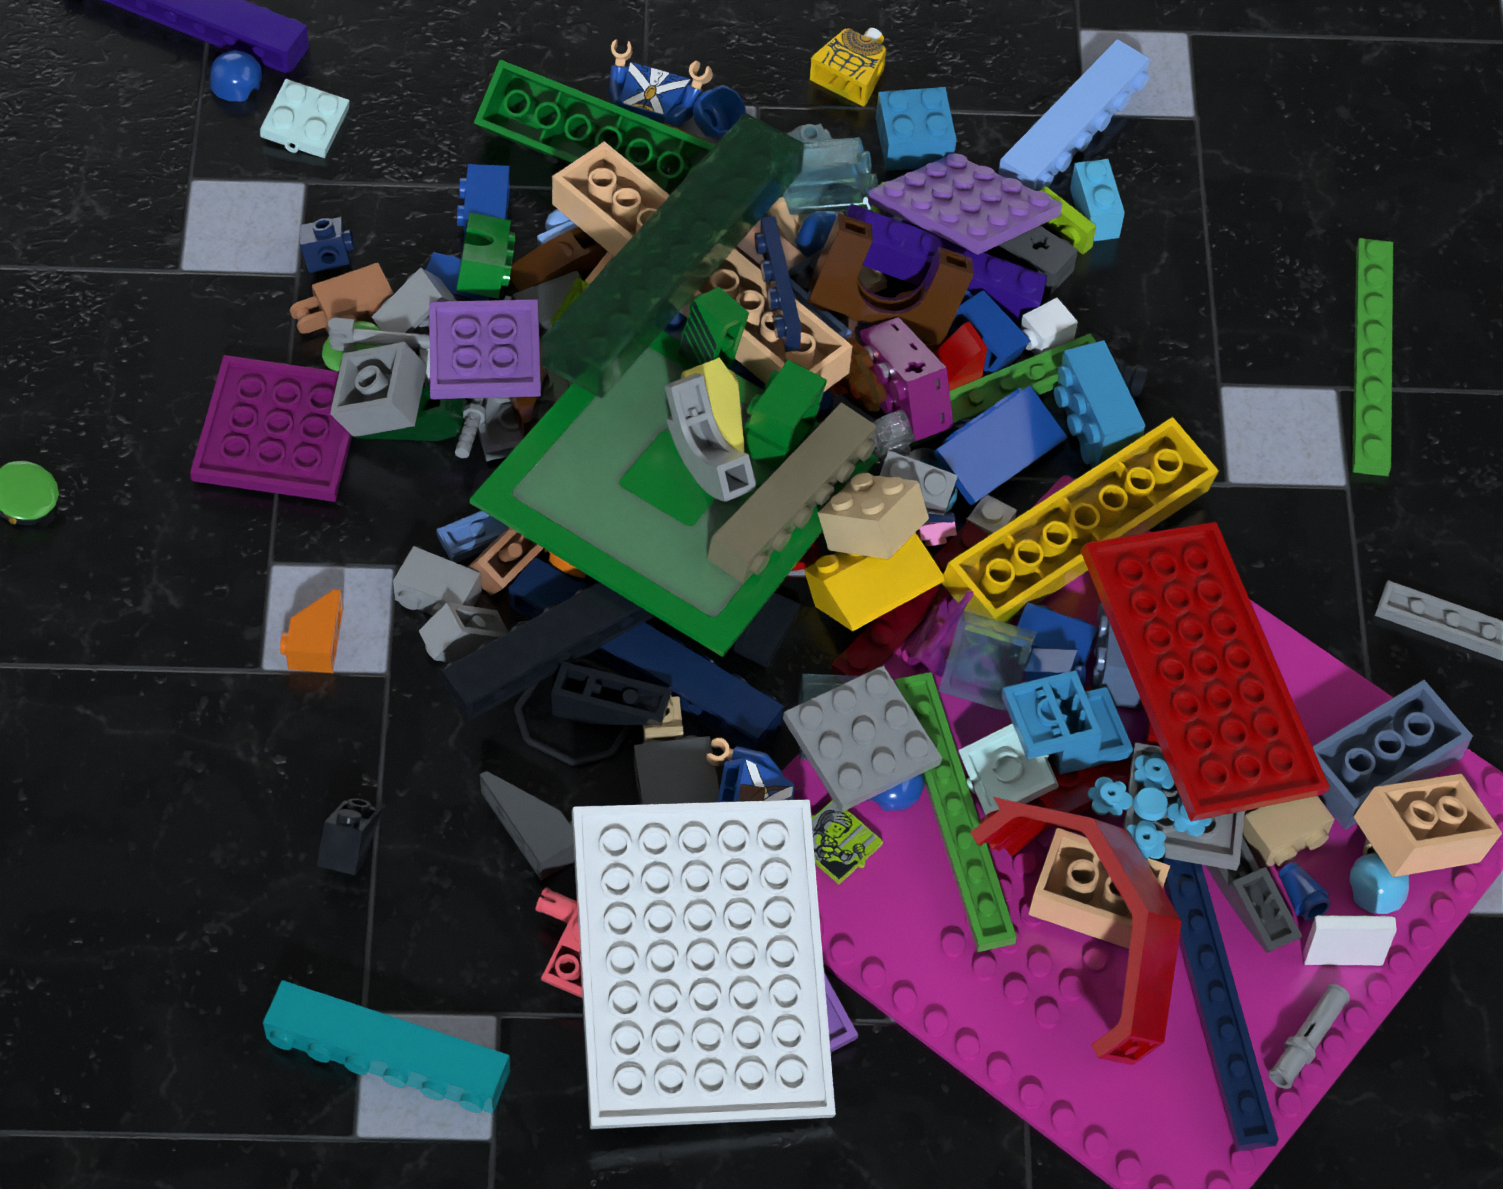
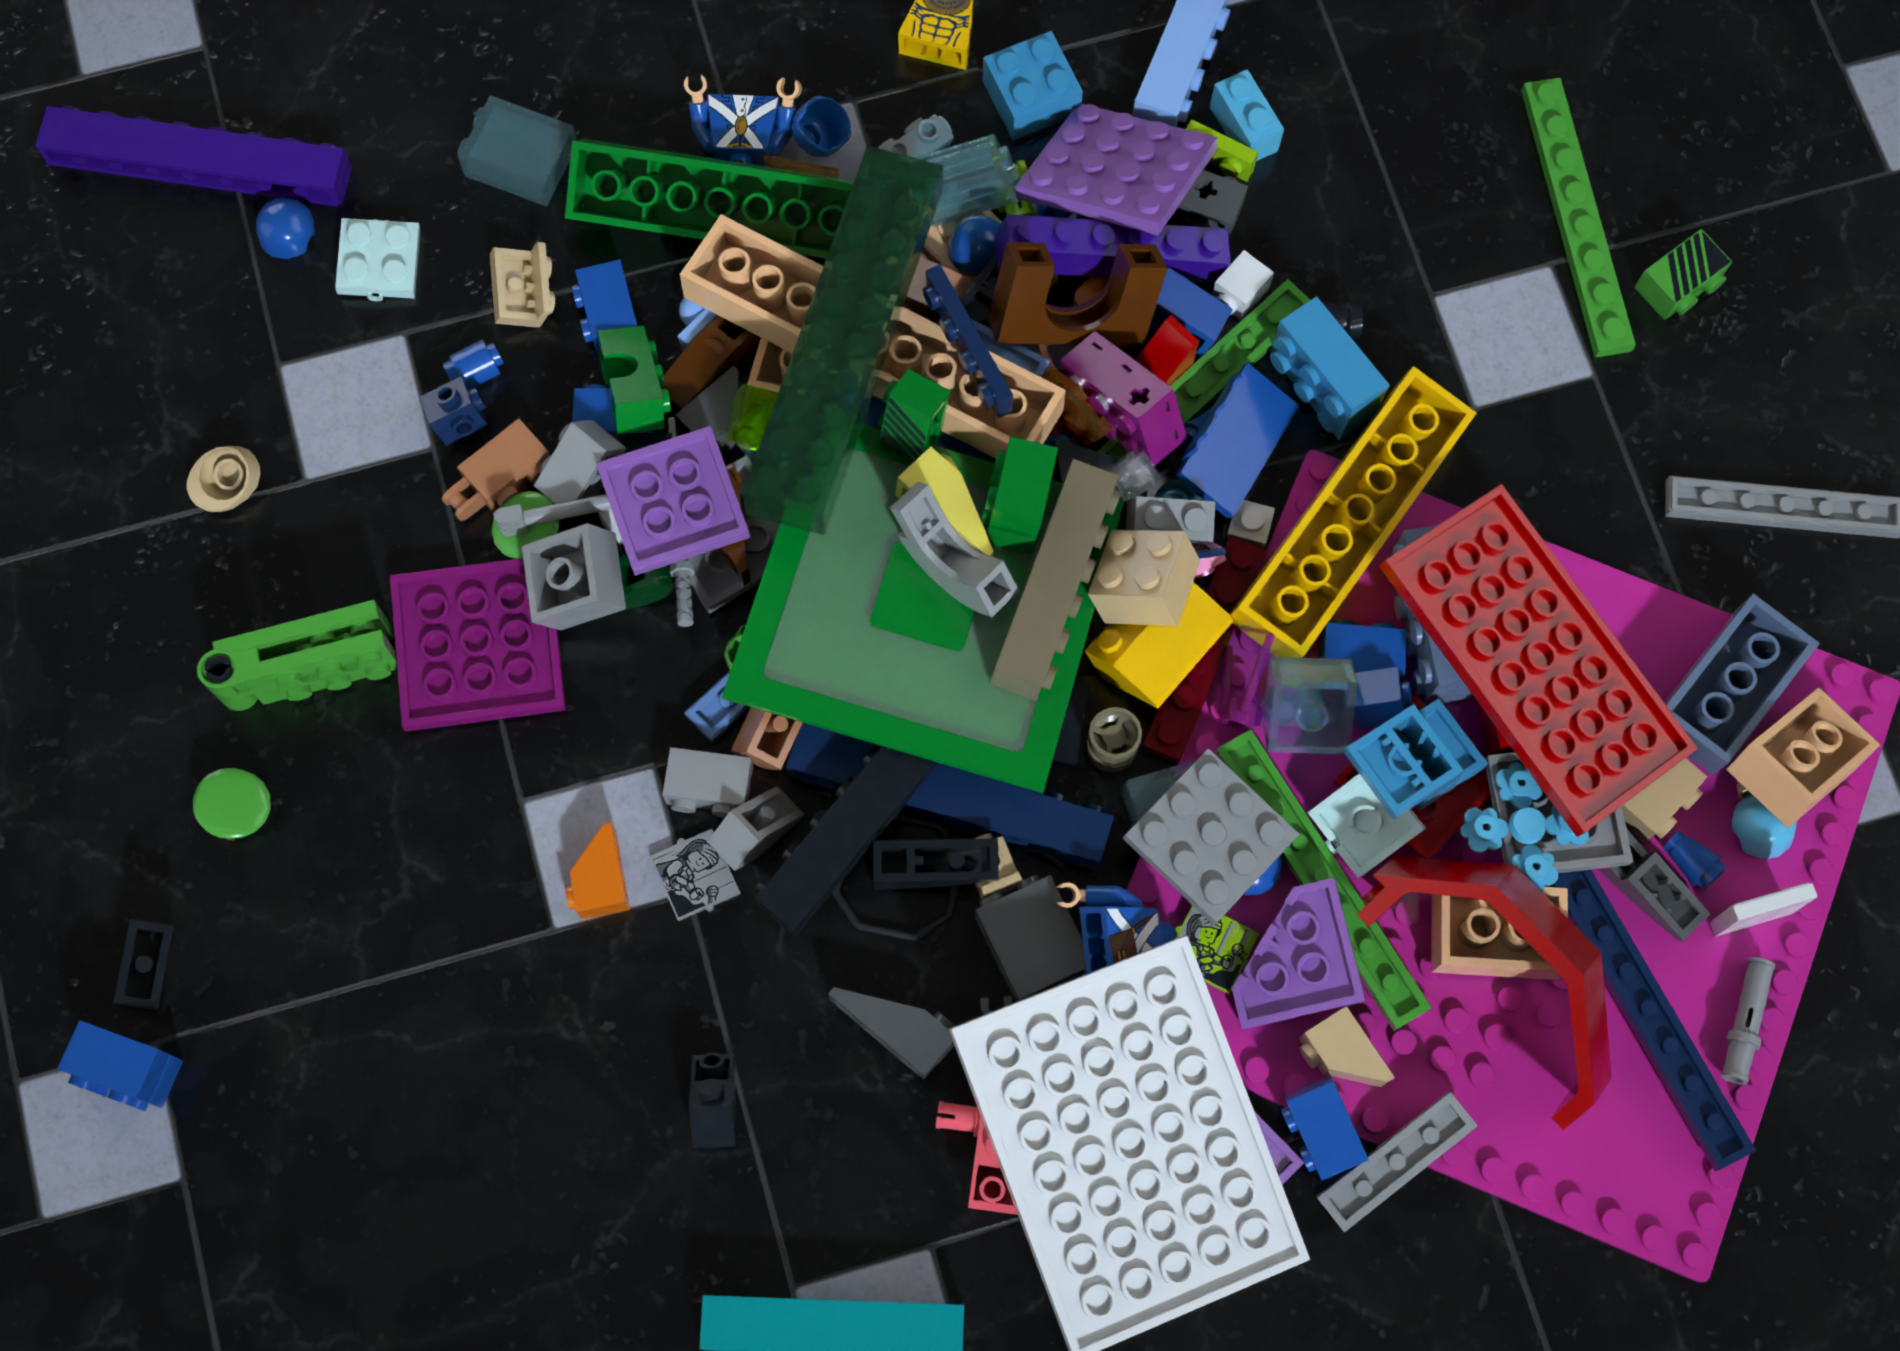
camera: 15 degrees left, 15 degrees up
(111, 247) = (223, 478): none -> tan hat
(124, 392) = (300, 657): none -> bright green hinge
(358, 215) = (474, 363): none -> blue brick
(398, 661) = (694, 875): none -> piece
(418, 168) = (521, 286): none -> tan bracket
(451, 66) = (517, 150): none -> clear light blue brick
(805, 647) = (1113, 739): none -> dark tan wheel
(886, 1009) = (1325, 1127): none -> blue brick
(910, 866) = (1301, 961): none -> medium lavender plate
(925, 952) = (1344, 1051): none -> tan slope
(942, 1056) = (1397, 1161): none -> light grey plate
(1453, 423) = (1683, 275): none -> bright green brick

